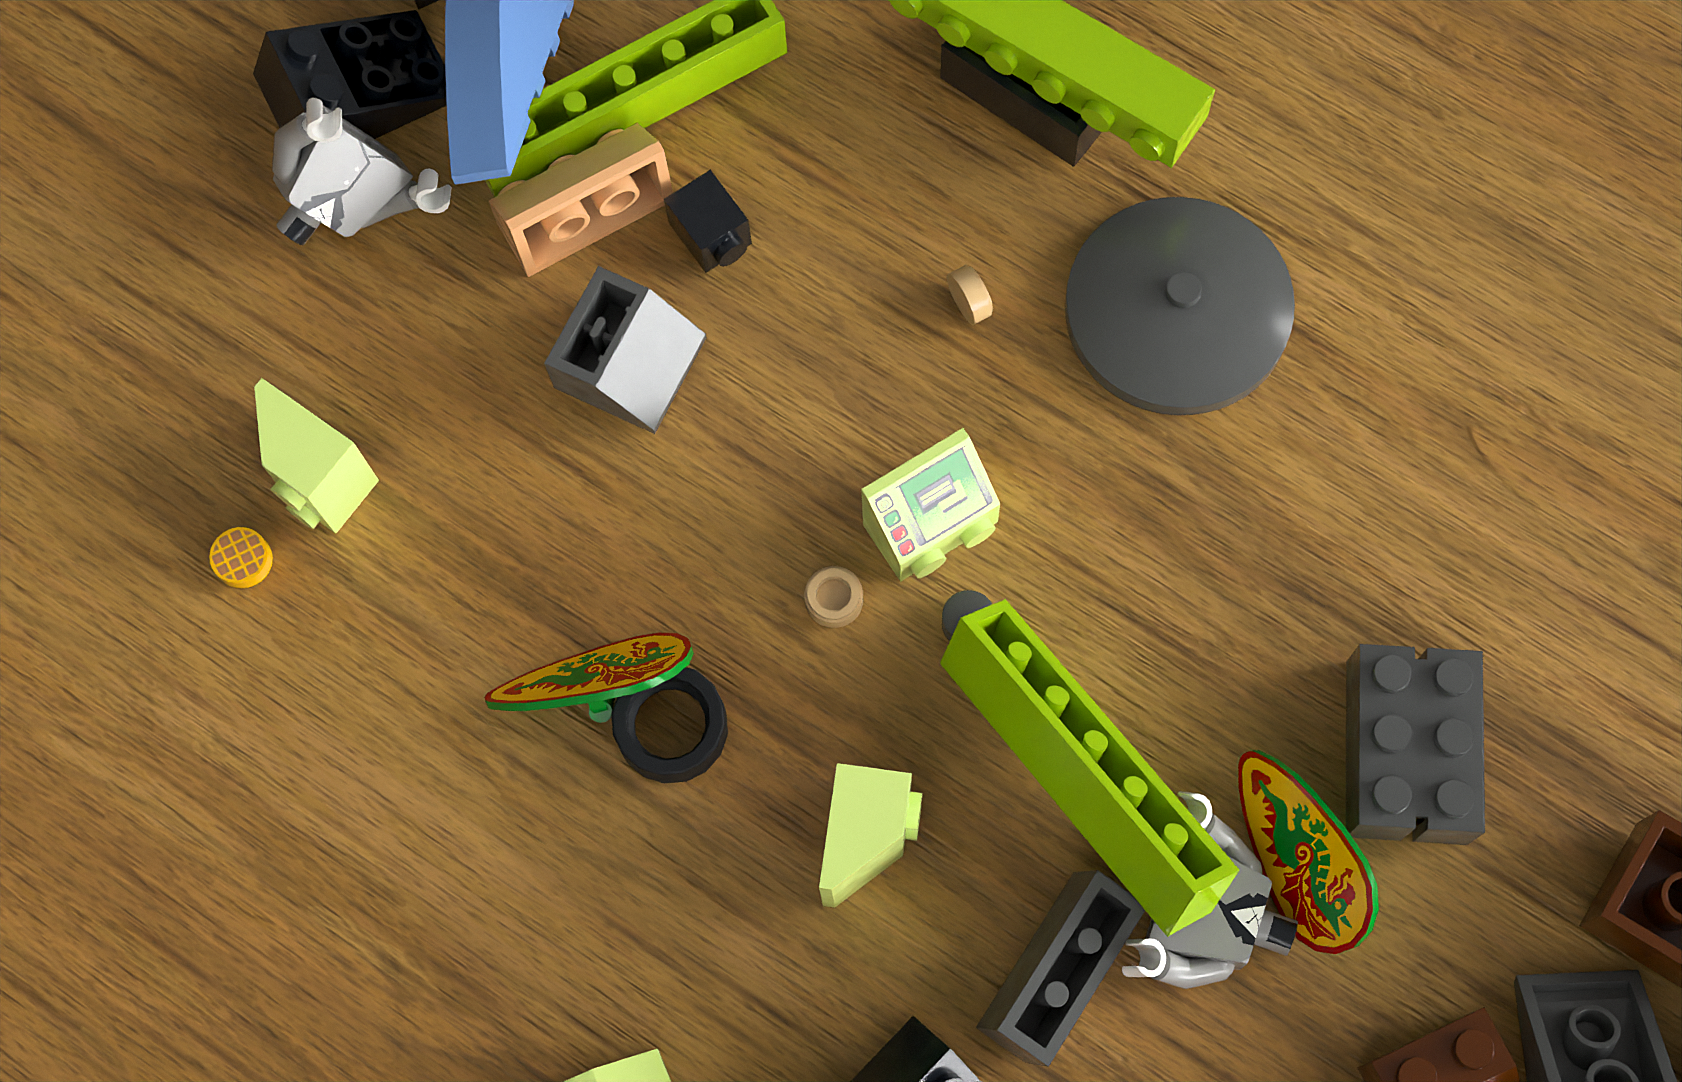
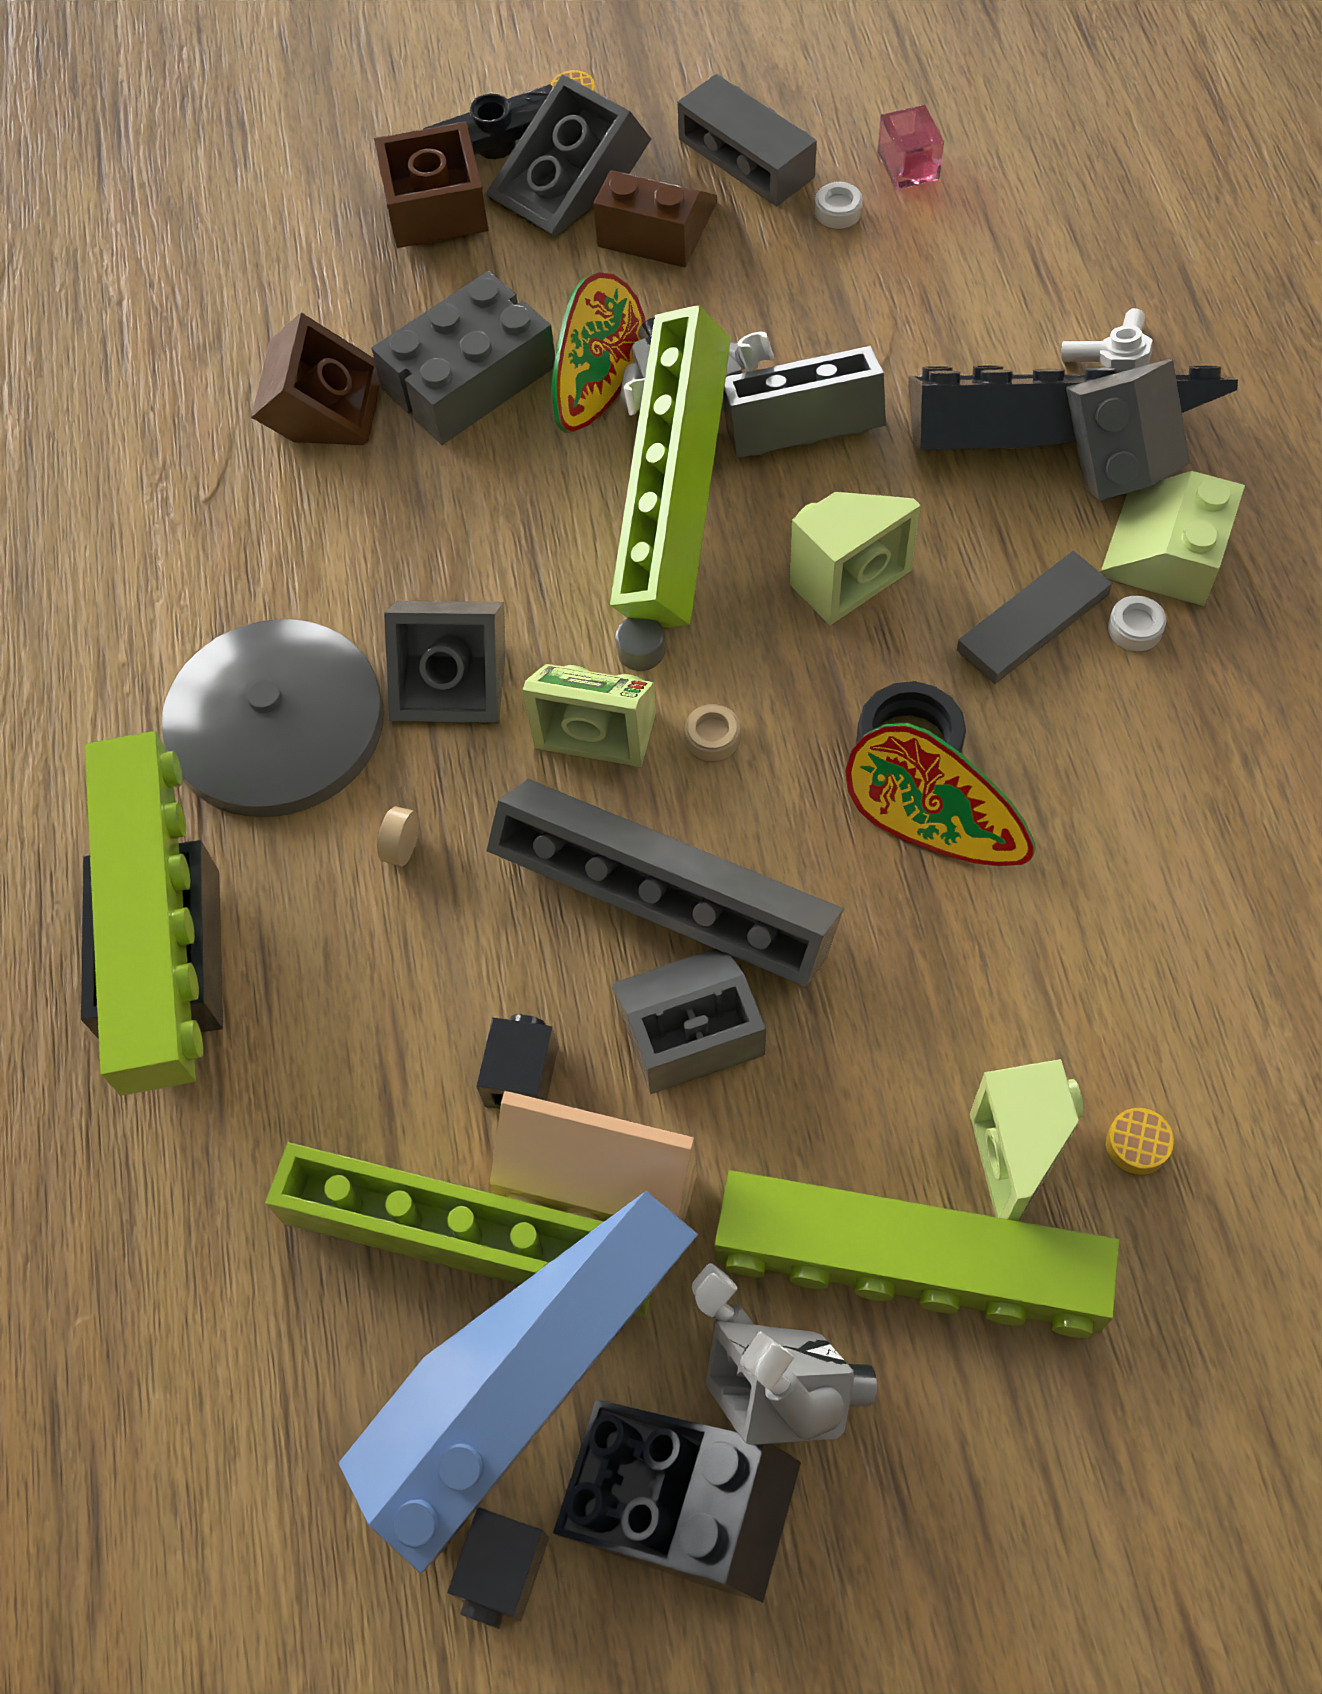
camera: 135 degrees left, 10 degrees down
(332, 337) = (918, 1253): none -> lime brick
(583, 1019) = (1137, 623): none -> white tile
(673, 945) = (1034, 617): none -> dark grey tile
(737, 427) = (665, 881): none -> dark grey brick
(1098, 458) = (445, 660): none -> dark grey slope
(1501, 596) = (316, 386): none -> reddish brown slope

